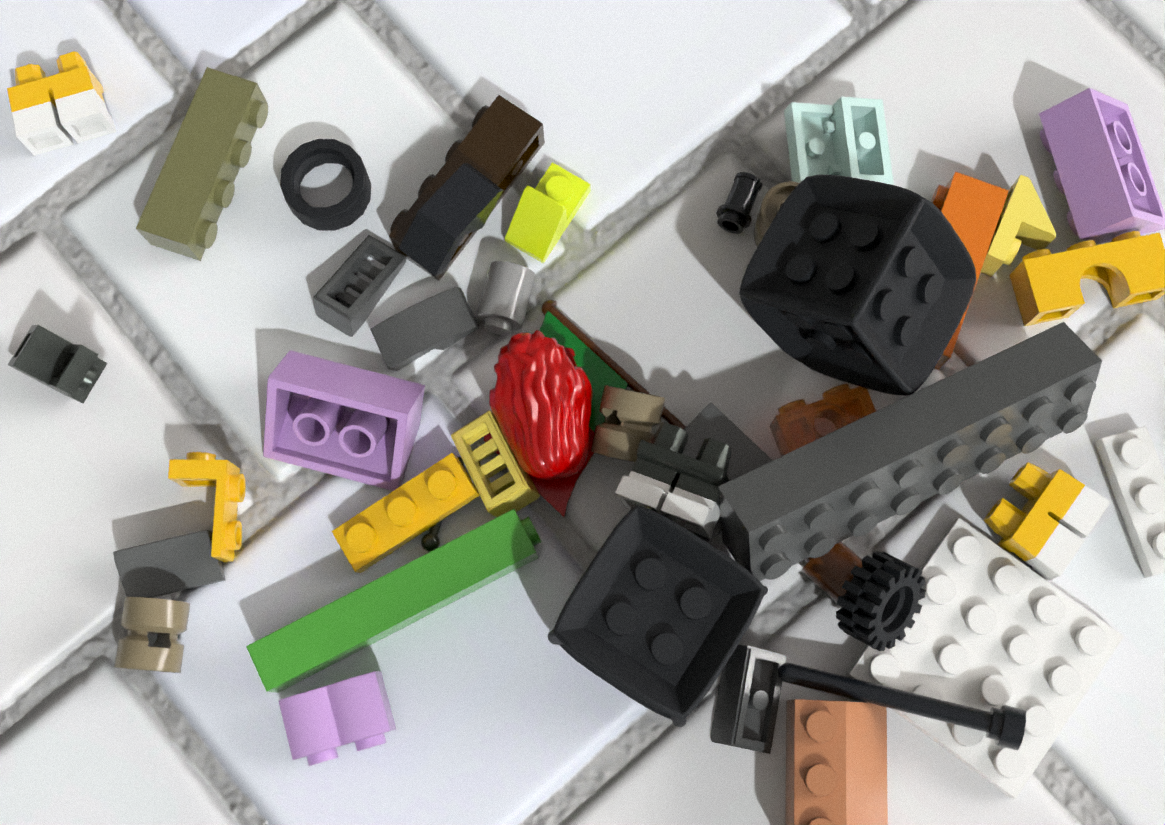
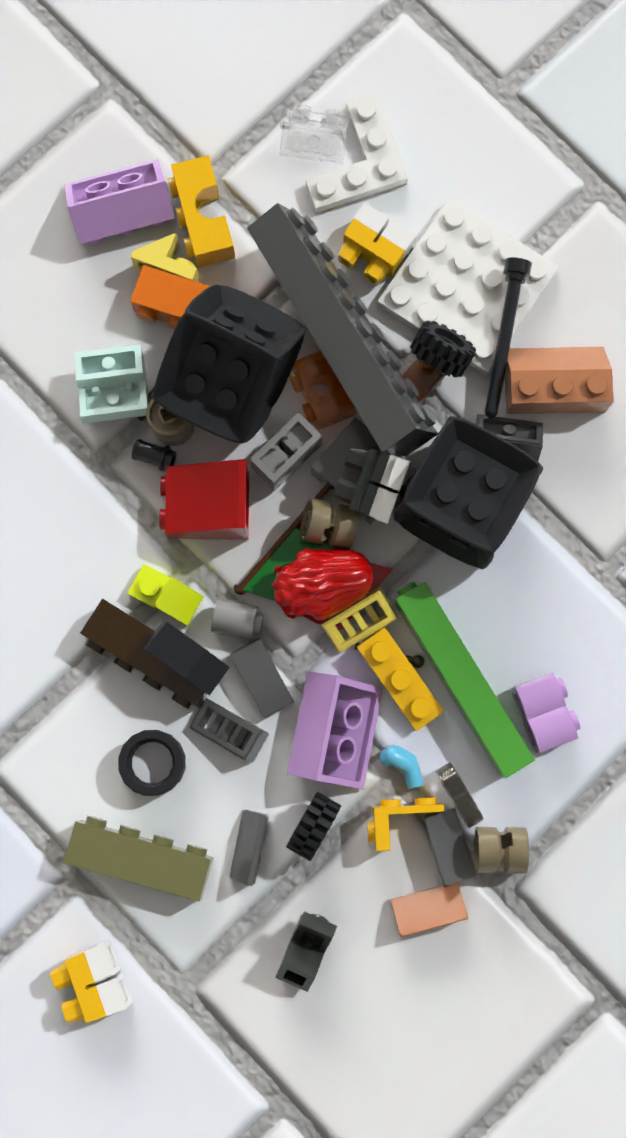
camera: 95 degrees left, 5 degrees up
(88, 531) = (428, 909): none -> slope
(203, 304) = (249, 847): none -> dark grey slope
(214, 378) = (313, 826): none -> black tyre
(236, 583) = (459, 795): none -> clear smoke beam
(292, 513) = (404, 761): none -> medium azure arm
(669, 266) = (206, 501): none -> red slope
(734, 371) = (286, 451): none -> light grey brick

